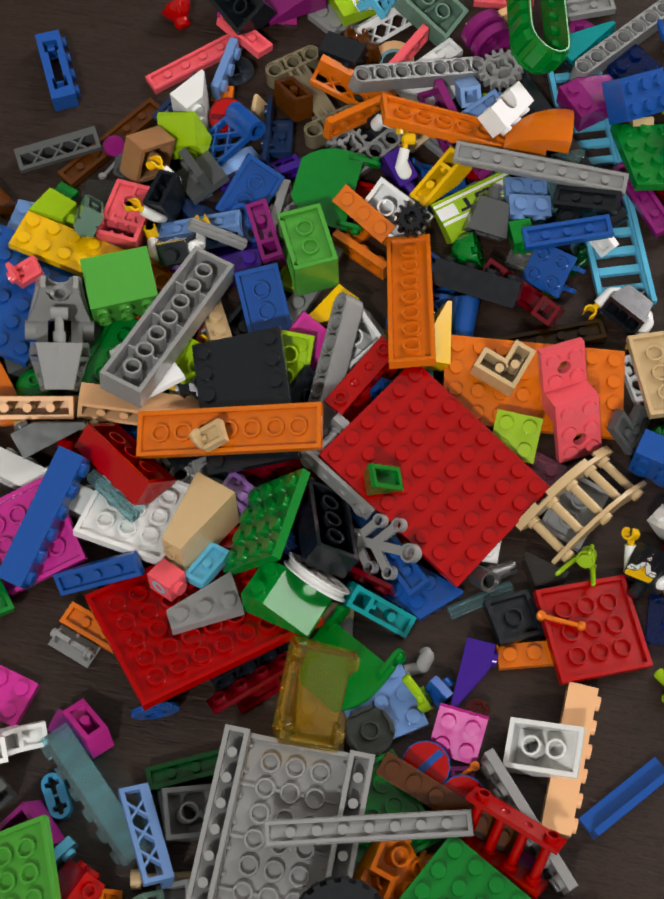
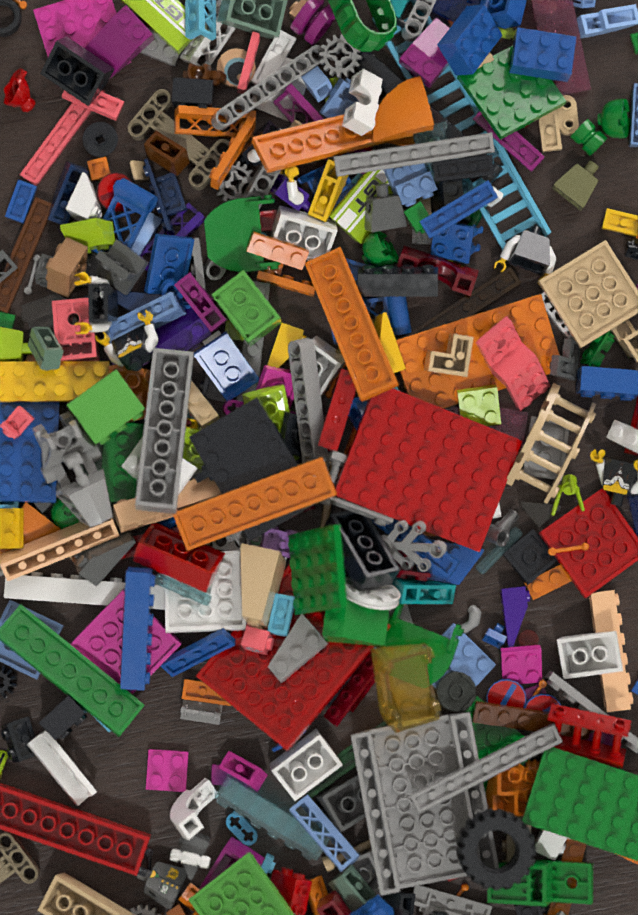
camera: 25 degrees left, 20 degrees up
(113, 145) = (28, 262): magenta tile -> none
(134, 97) = (21, 201): none -> blue plate
(161, 748) = (305, 764): none -> white slope
(210, 435) = (243, 518): tan plate -> none
(217, 233) = (164, 323): light grey axle -> none
(225, 69) = (94, 145): medium blue plate -> none
(382, 479) = (392, 497): green slope -> none
(415, 226) = (330, 243): black gear -> none
(422, 697) = (482, 646): lime bar -> none

